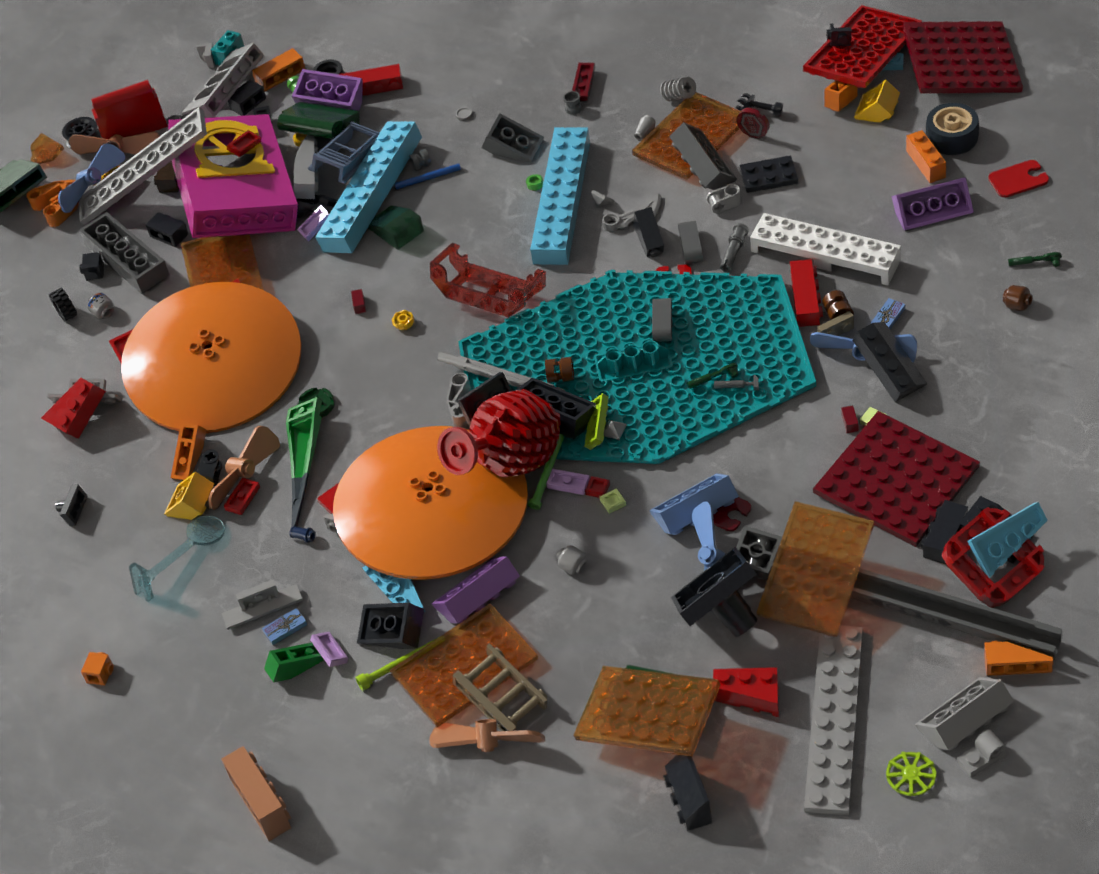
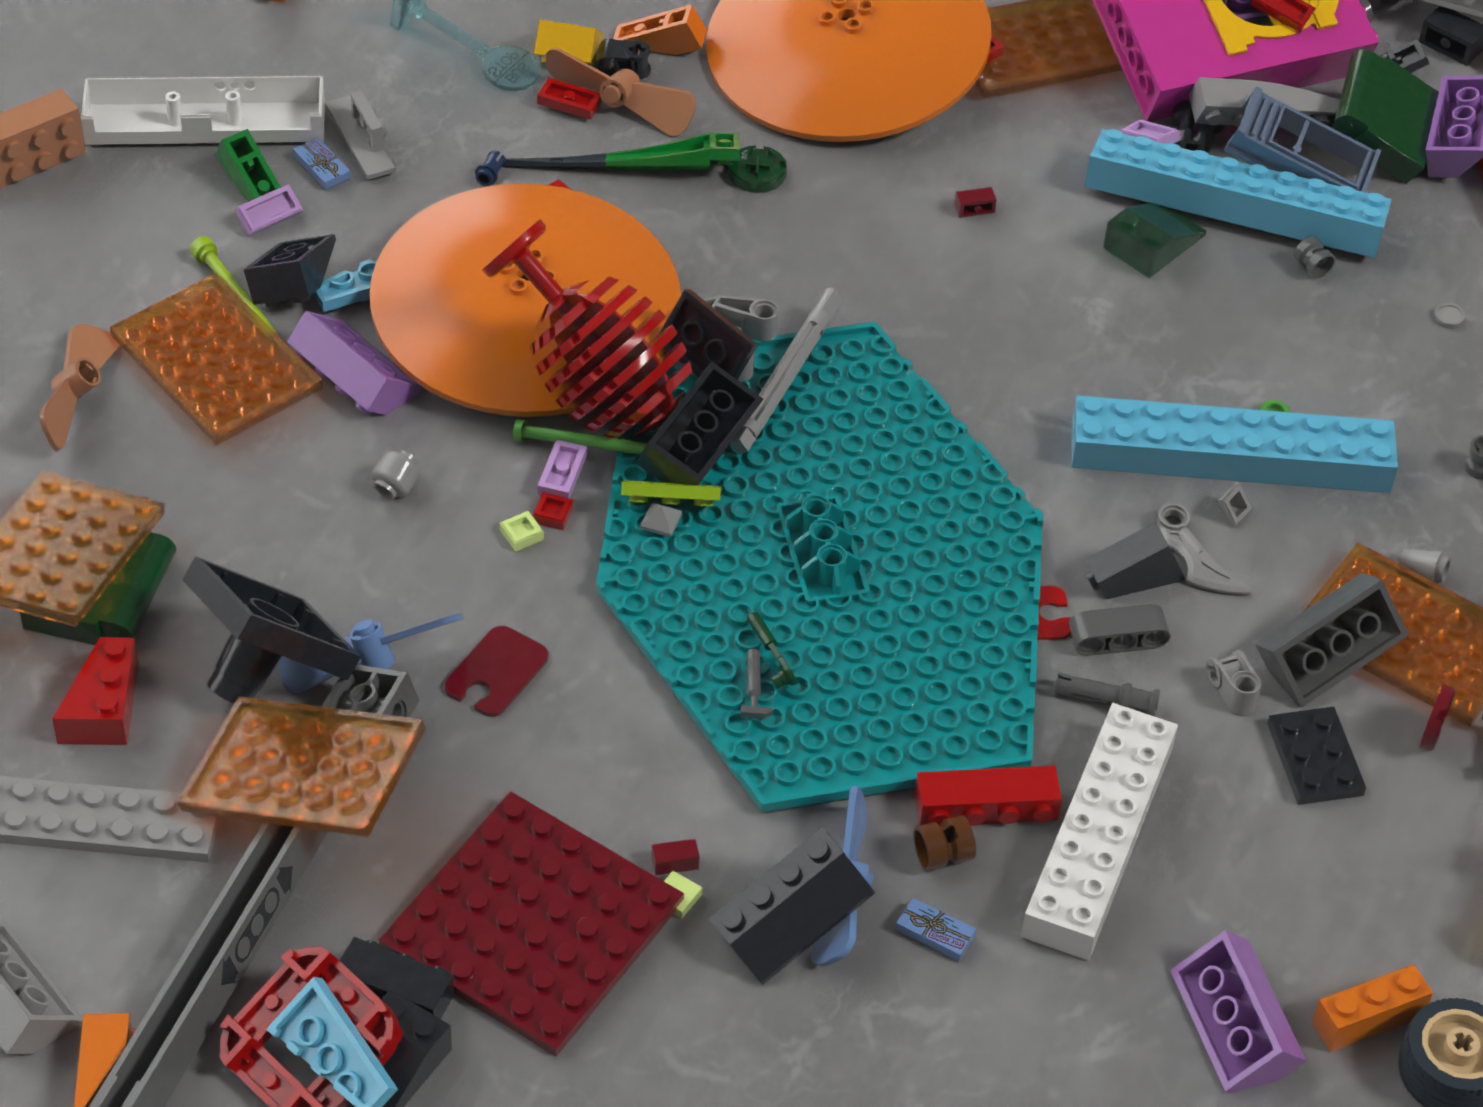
camera: 75 degrees right, 0 degrees up
(231, 688) = (198, 112): none -> white piece
(403, 320) = (930, 256): yellow plate -> none
(427, 176) = (1281, 274): blue bar -> none
(494, 710) = (131, 368): dark tan fence -> none
(512, 140) = (1372, 373): dark grey slope -> none
(517, 289) = (1031, 325): clear red windscreen -> none
(566, 370) = (784, 437): reddish brown wheel -> none
(662, 320) = (902, 575): dark grey beam -> none
(678, 511) = (494, 628): medium blue slope -> none
(838, 325) = (897, 839): dark tan plate -> none

